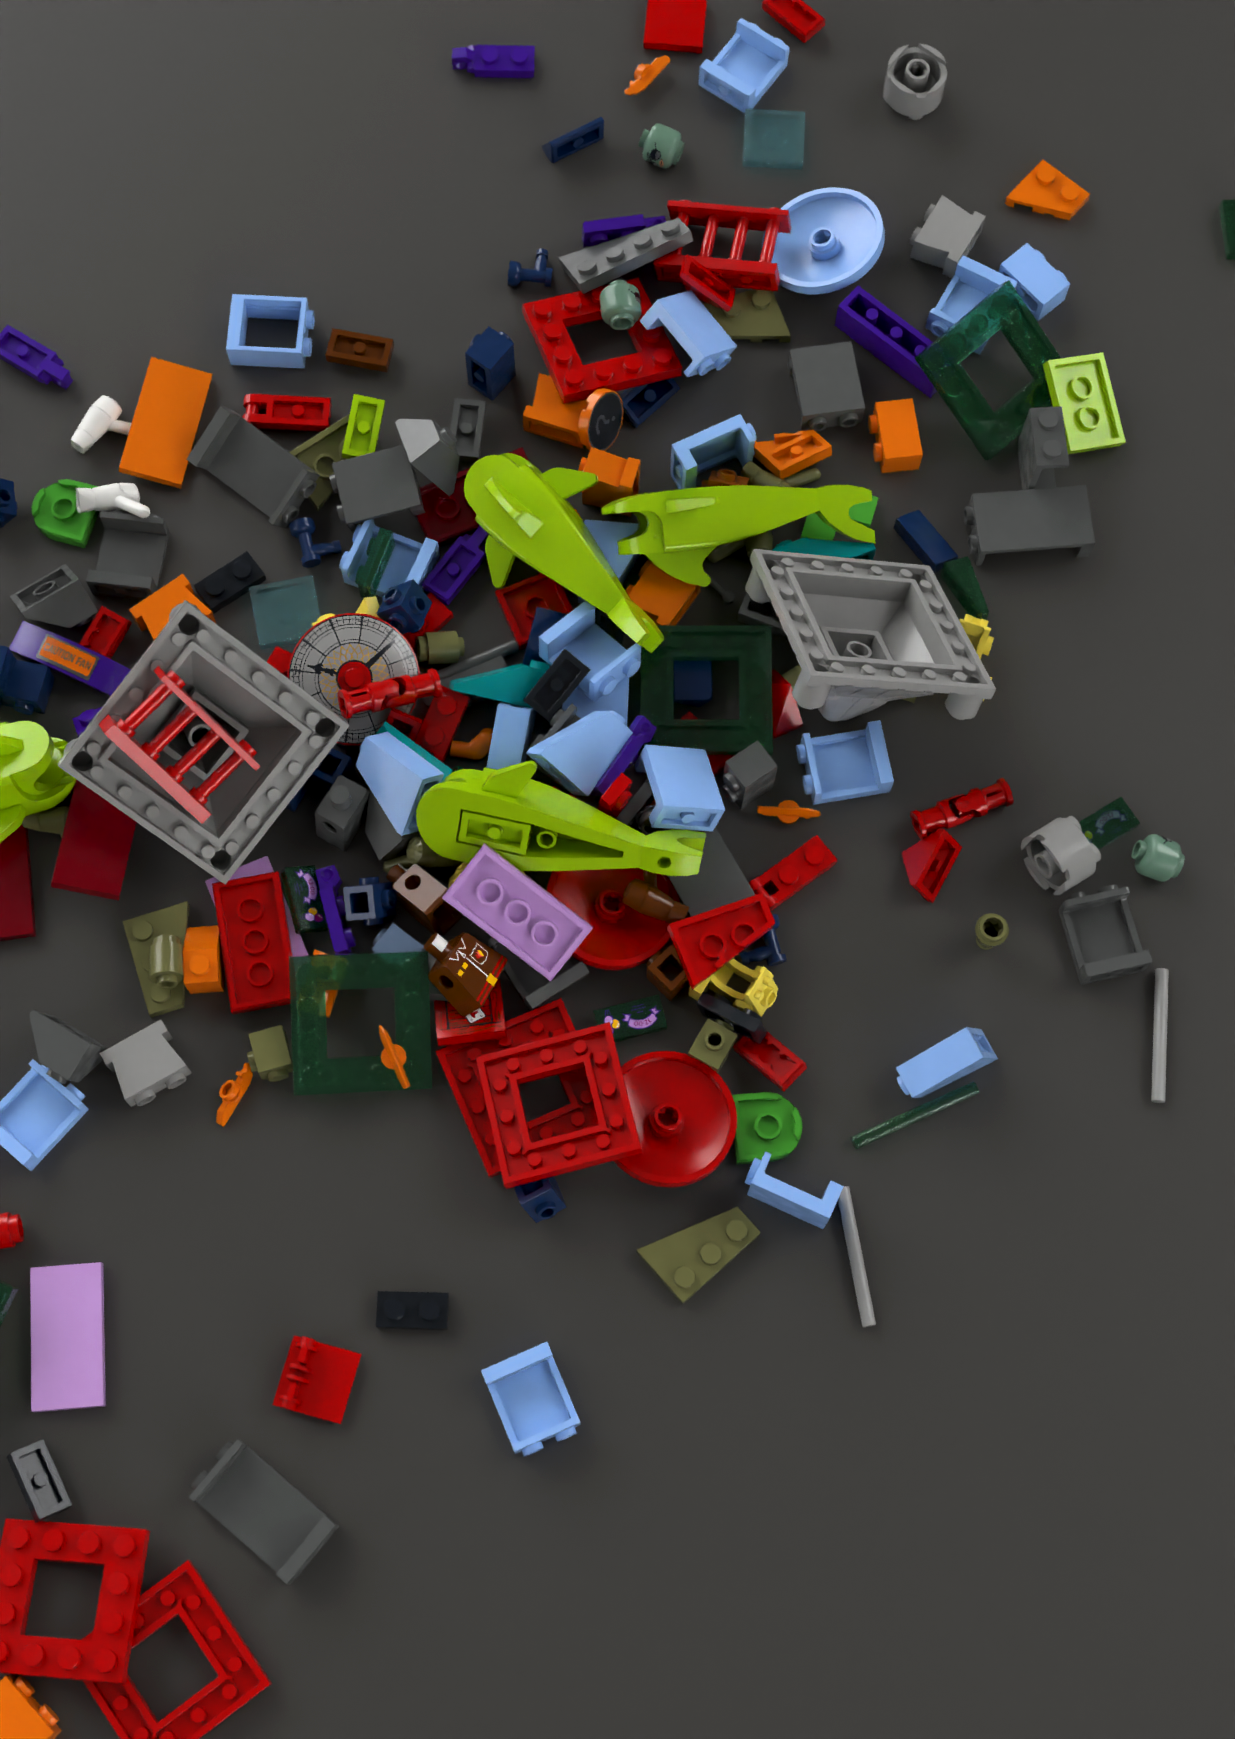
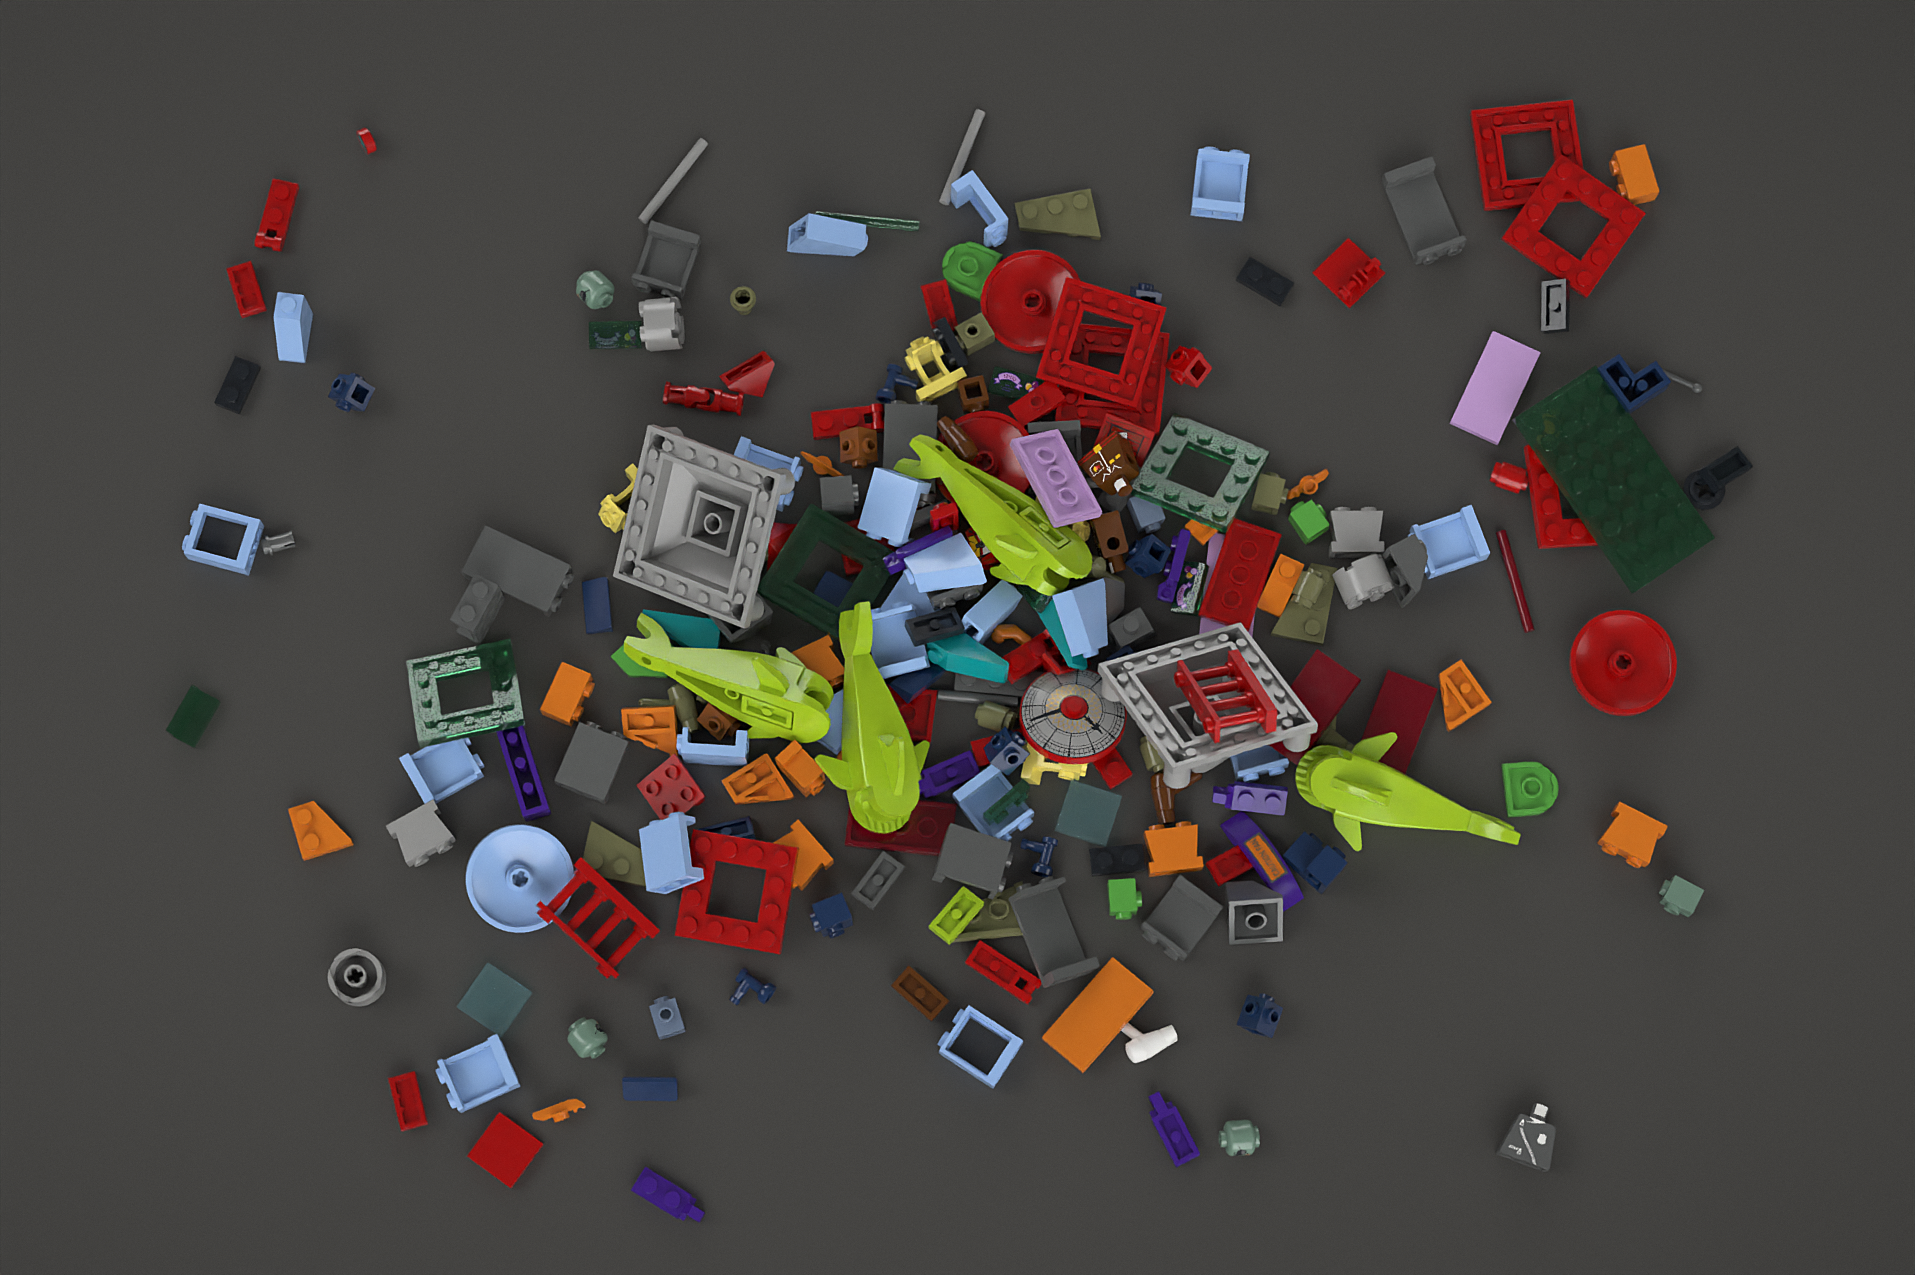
camera: 150 degrees left, 5 degrees up
(57, 513) = (1206, 986): bright green tile -> none
(106, 1006) = (1363, 580): none -> light grey brick
(111, 497) = (1166, 969): white piece -> none
(201, 543) = (1123, 898): none -> bright green brick
(209, 1048) = (1308, 520): none -> bright green brick
(385, 694) = (1064, 682): red piece -> none
(393, 1057) = (1190, 436): orange piece -> none
(431, 451) = (921, 859): dark grey slope -> none
(444, 1145) = (1188, 366): none -> red brick
(593, 1001) = (1037, 403): none -> red plate
(595, 199) = (667, 1017): none -> sand blue brick
(601, 420) = (777, 823): tile -> none
(607, 229) = (661, 980): dark purple hinge -> none
(619, 256) = (681, 952): dark grey wing -> none
(620, 305) = (709, 900): sand green head -> none
(654, 453) = (757, 783): none -> orange wing
(706, 284) = (632, 885): red slope -> none
(719, 935) = (928, 392): red wing -> none
(726, 399) = (671, 789): none -> red hinge
(760, 845) = (858, 447): none -> dark orange brick
(964, 585) = (594, 554): clear green slope -> none
(1038, 282) = (382, 759): light blue brick -> none
(1087, 402) = (416, 637): lime plate -> none

